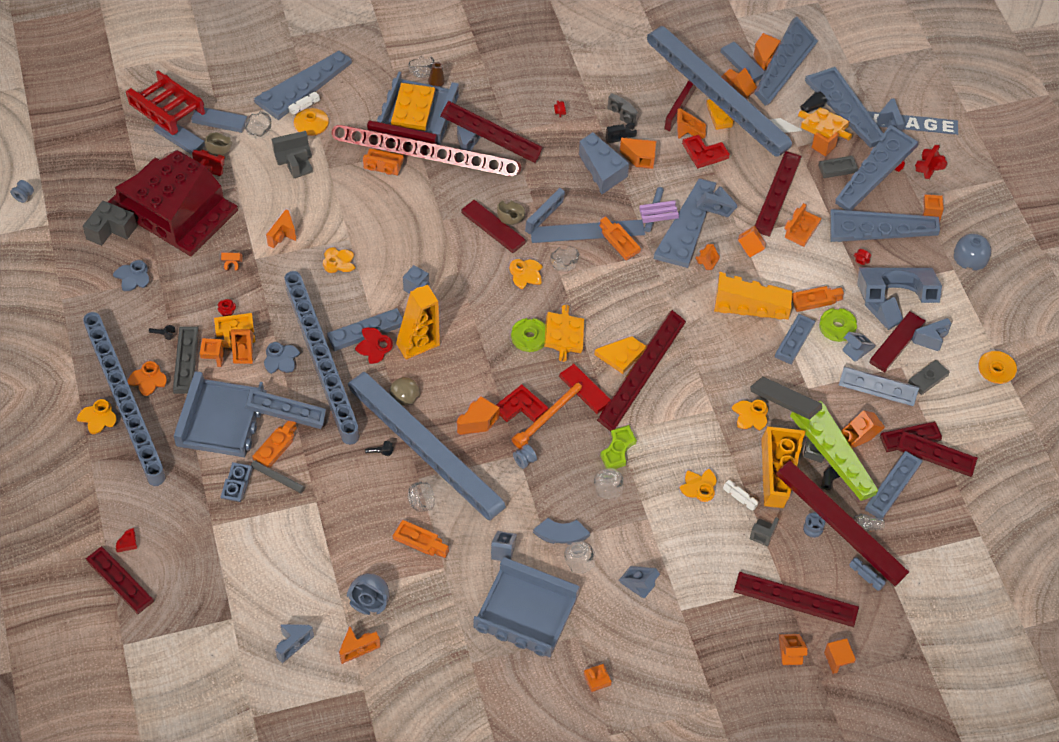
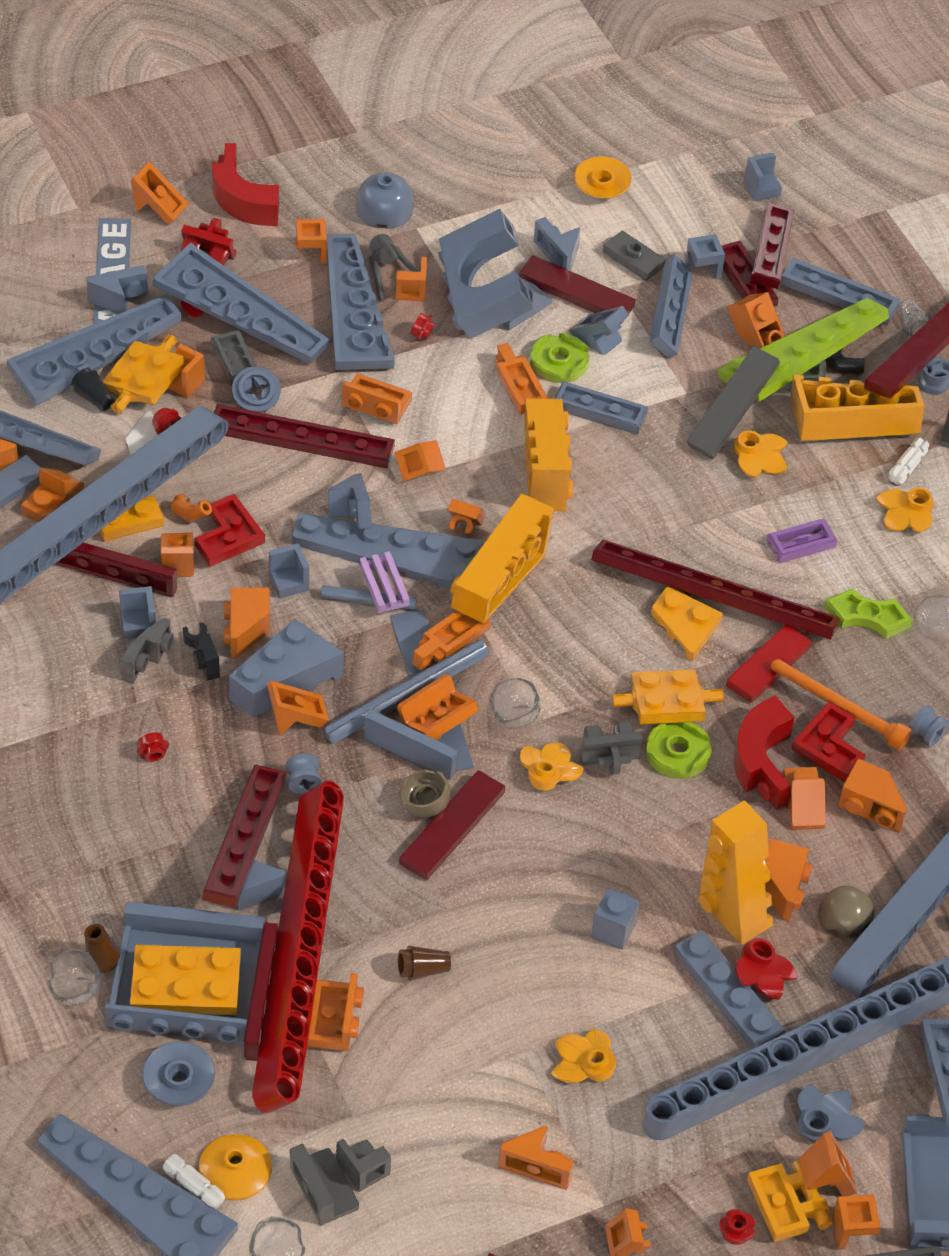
camera: 100 degrees left, 5 degrees down
(361, 100) = (176, 1061): none -> sand blue dish
(407, 200) = (422, 962): none -> reddish brown cone
(429, 362) = (787, 870): none -> orange slope
(486, 387) = (805, 798): none -> orange slope
(519, 364) = (760, 730): none -> red arch
(523, 299) = (611, 749): none -> dark grey hips
(532, 165) = (303, 772): none -> sand blue wheel
(565, 223) = (436, 708): none -> orange bracket
(575, 162) = (294, 705): none -> orange slope
(585, 218) = (389, 700): none -> sand blue axle
(648, 111) = (136, 610): none -> sand blue panel
(663, 261) = (504, 559): none -> light orange wedge
(672, 175) = (289, 570): none -> sand blue panel
(682, 437) = (804, 544): none -> medium lavender tile
(723, 134) = (189, 512): none -> orange arm
(788, 129) = (164, 419): none -> red plate
(814, 166) = (262, 379): none -> sand blue gear
(900, 258) = (412, 285): none -> orange panel
(922, 409) = (706, 251): none -> sand blue panel
(927, 245) = (385, 252): none -> dark grey plant
(969, 139) = (154, 189): none -> orange slope
(978, 176) = (240, 198): none -> red arch
(1001, 458) = (761, 178): none -> sand blue panel

